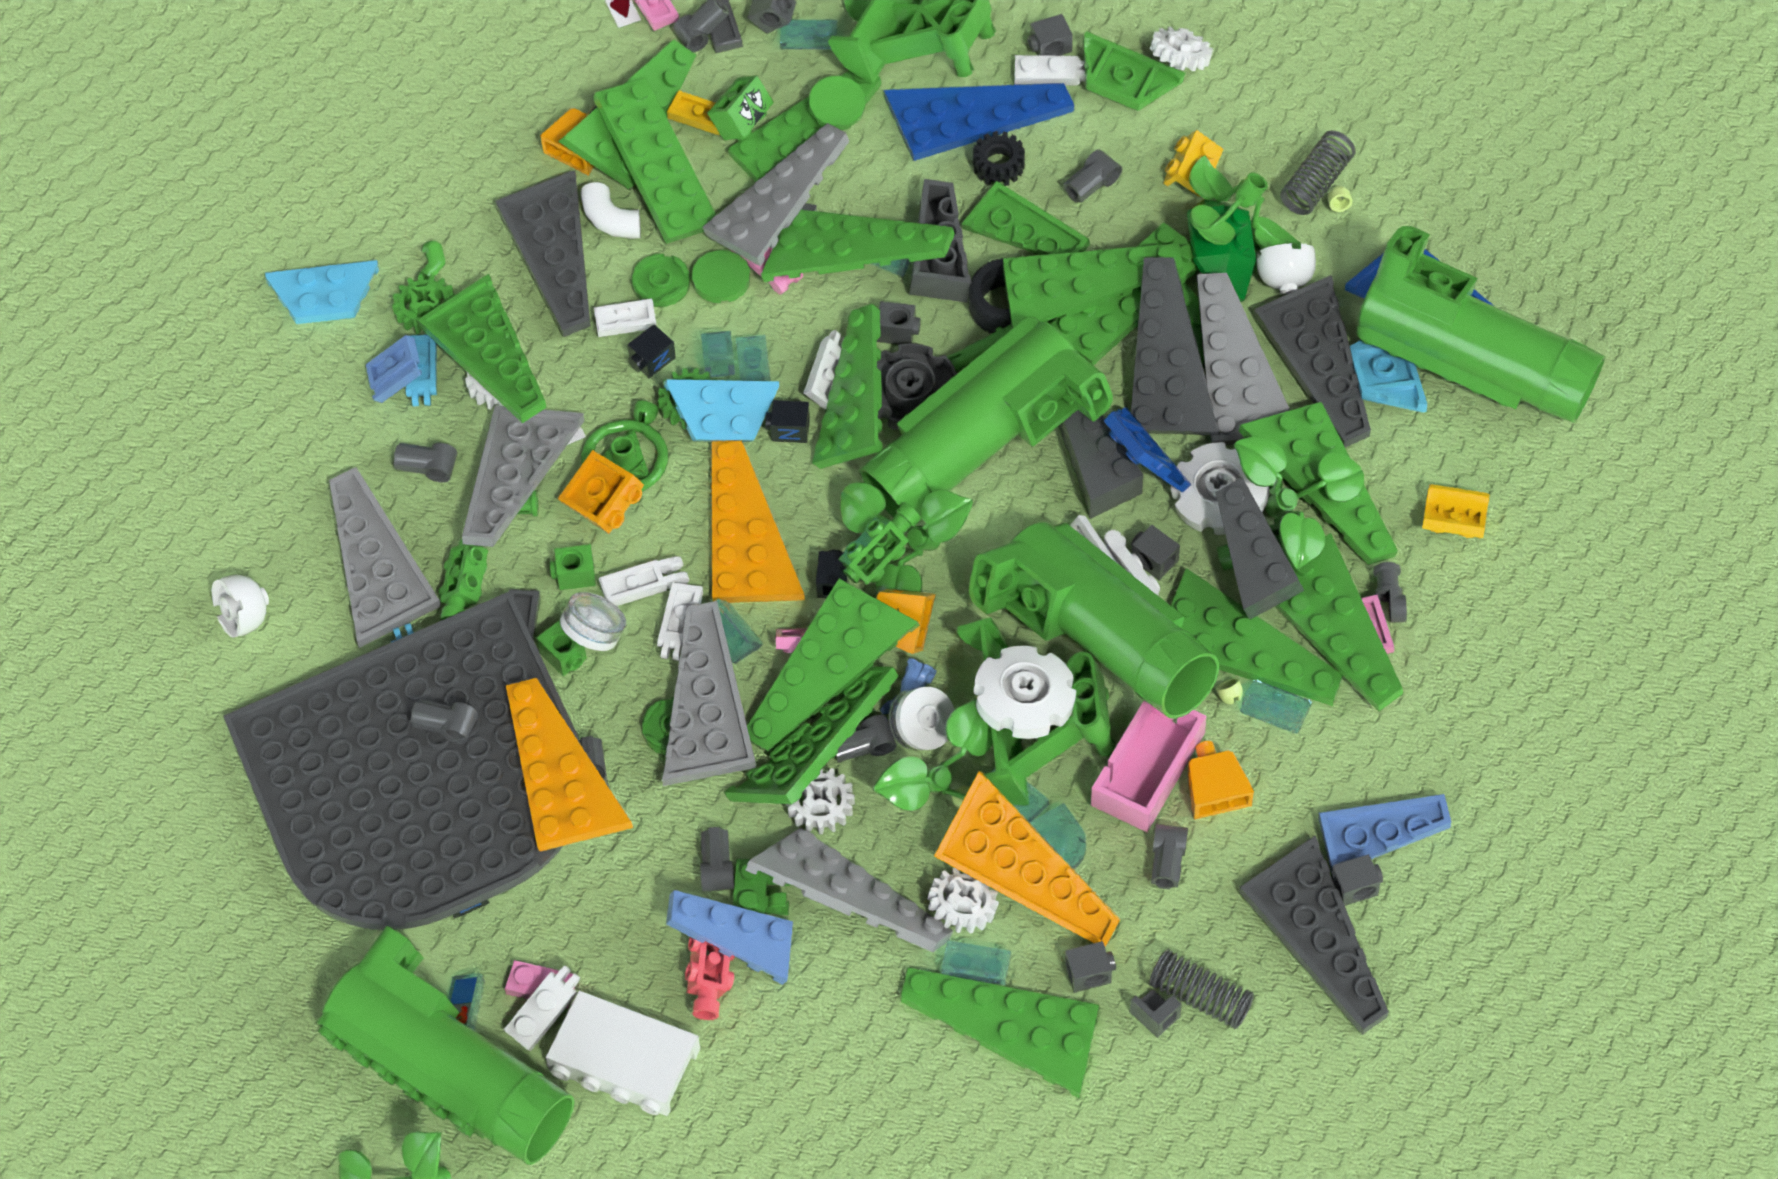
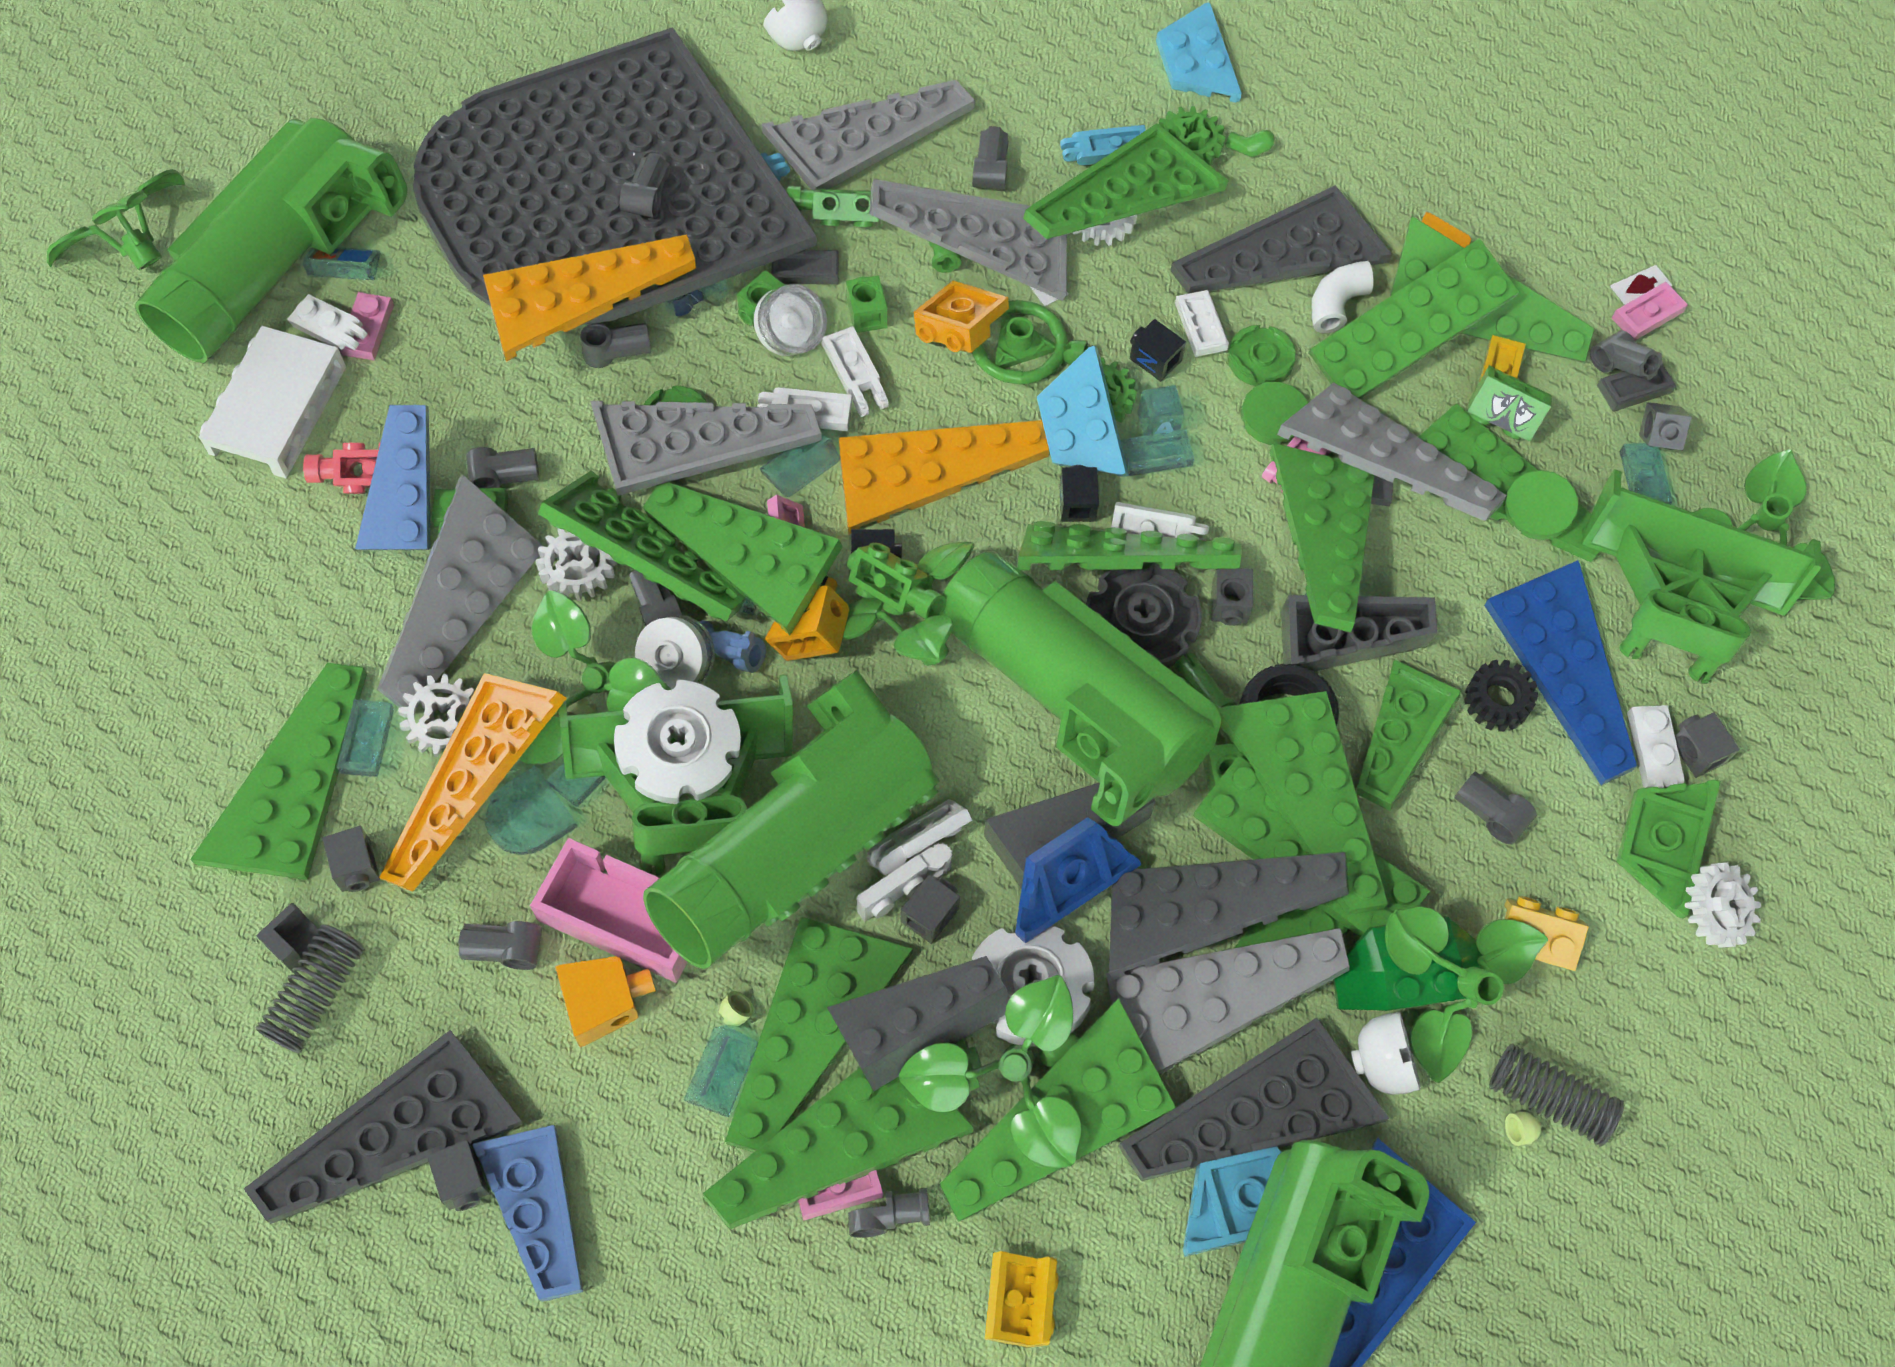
camera: 80 degrees right, 5 degrees up
(393, 368) = (1100, 114): medium blue plate -> none

